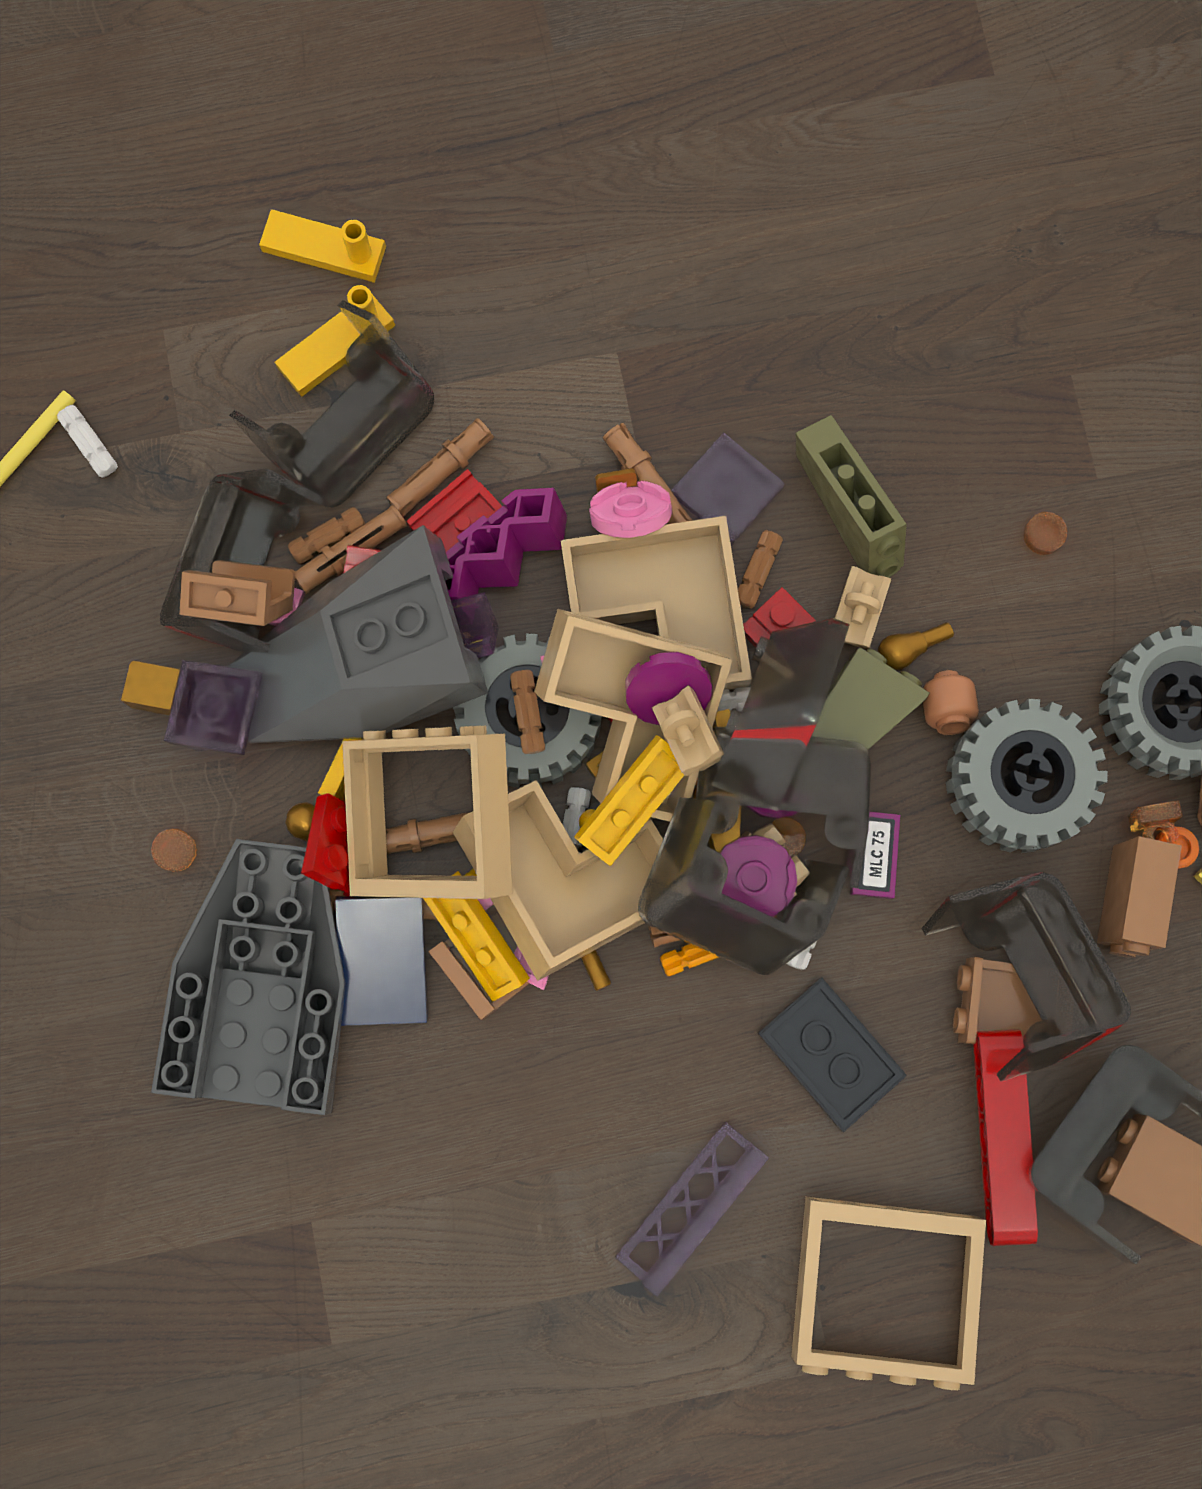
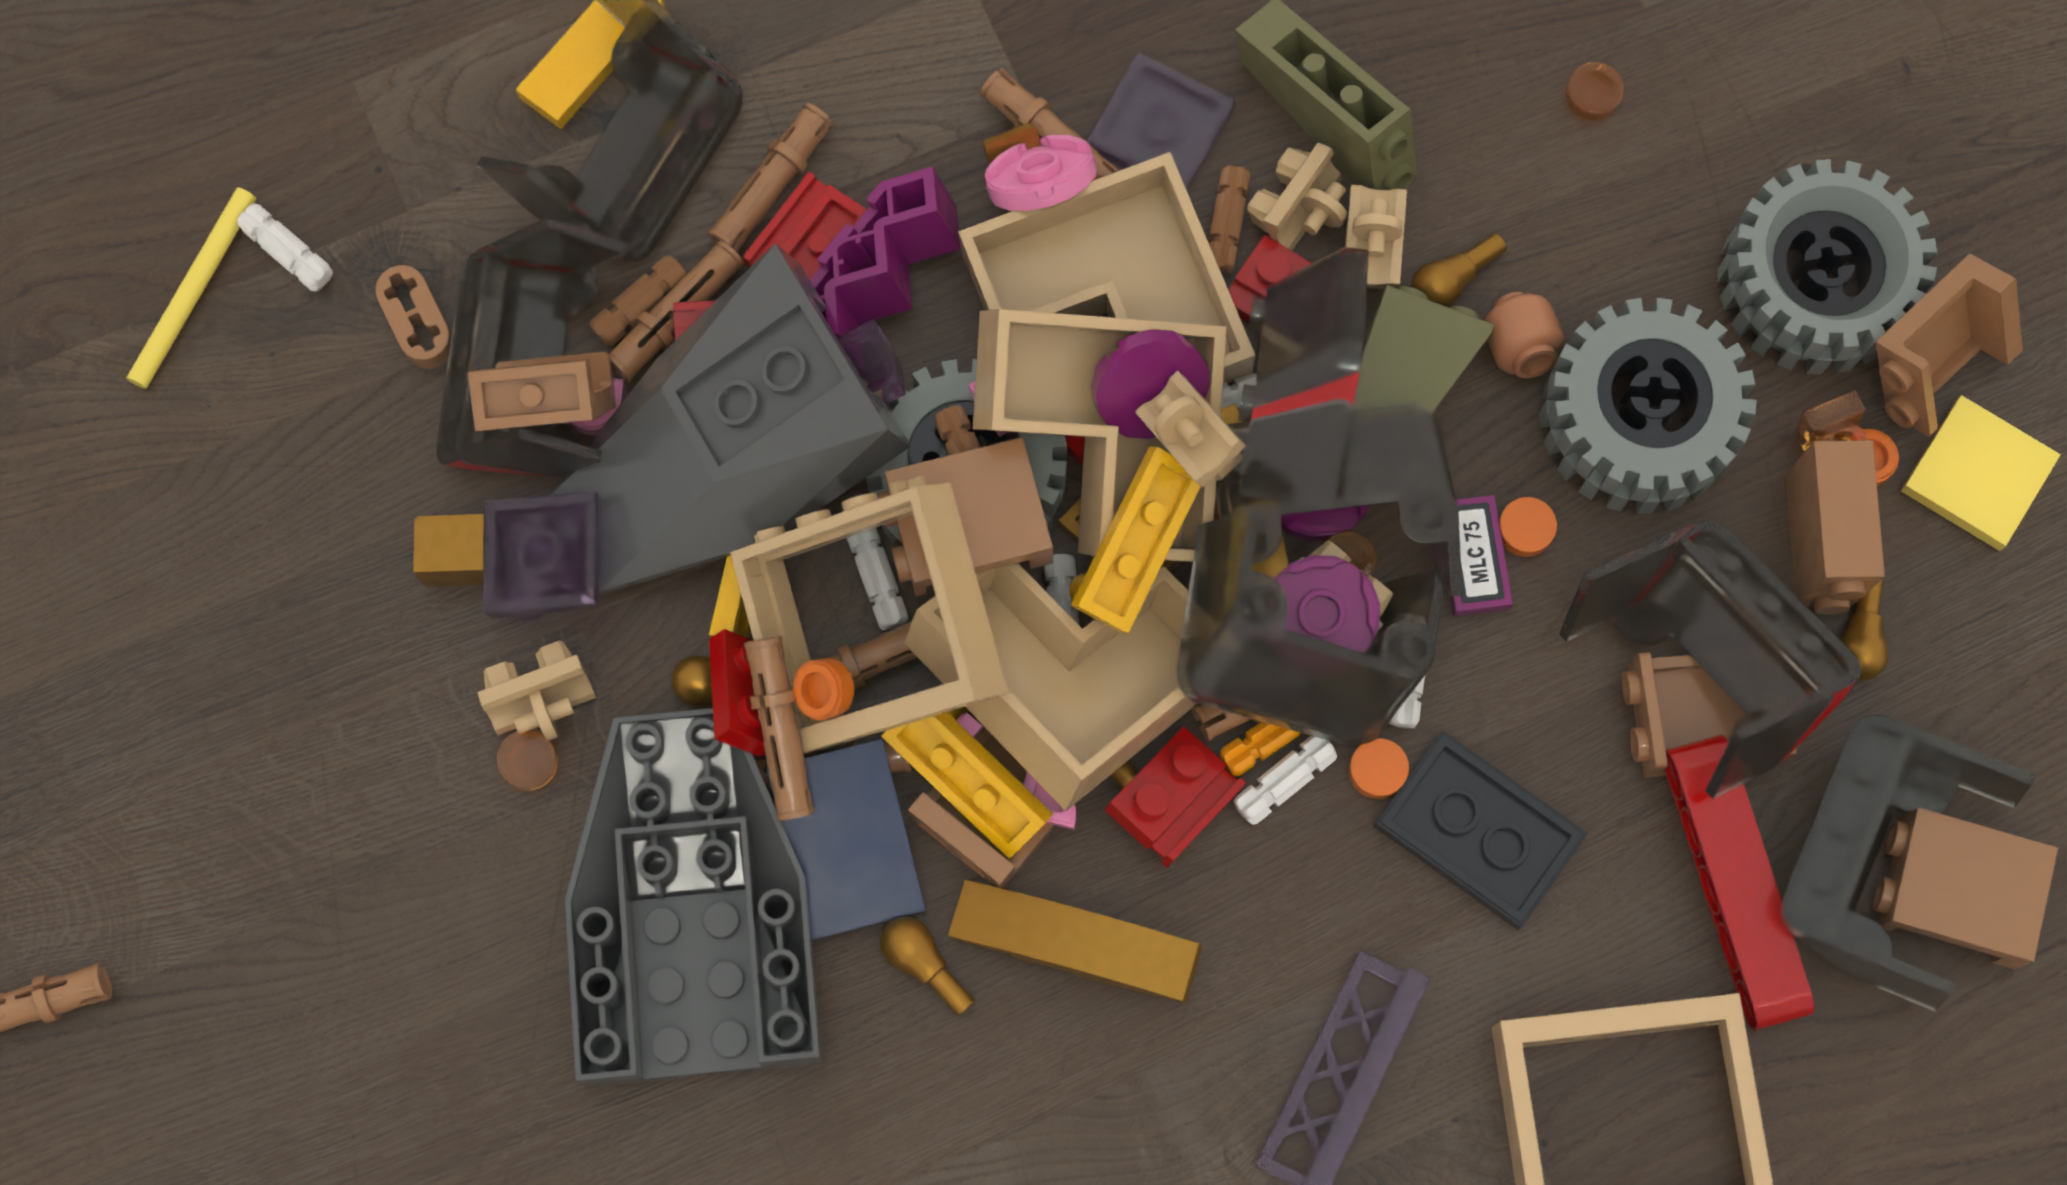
camera: 10 degrees left, 5 degrees down
(157, 513) = (403, 322): none -> medium nougat beam
(189, 809) = (536, 696): none -> tan hips
(348, 865) = (782, 741): none -> medium nougat pin
(384, 857) = (823, 688): none -> orange tile
(410, 1048) = (912, 949): none -> pearl gold piece
(449, 781) = (878, 579): none -> white axle
(526, 1070) = (1075, 941): none -> pearl gold slope
(534, 750) = (995, 507): none -> medium nougat panel
(620, 982) = (1175, 796): none -> red plate
(701, 986) = (1284, 779): none -> white axle
(770, 994) = (1378, 769): none -> orange tile
(817, 570) = (1306, 202): none -> tan hips
(918, 842) = (1527, 526): none -> orange tile
(1140, 981) = (1866, 635): none -> pearl gold piece

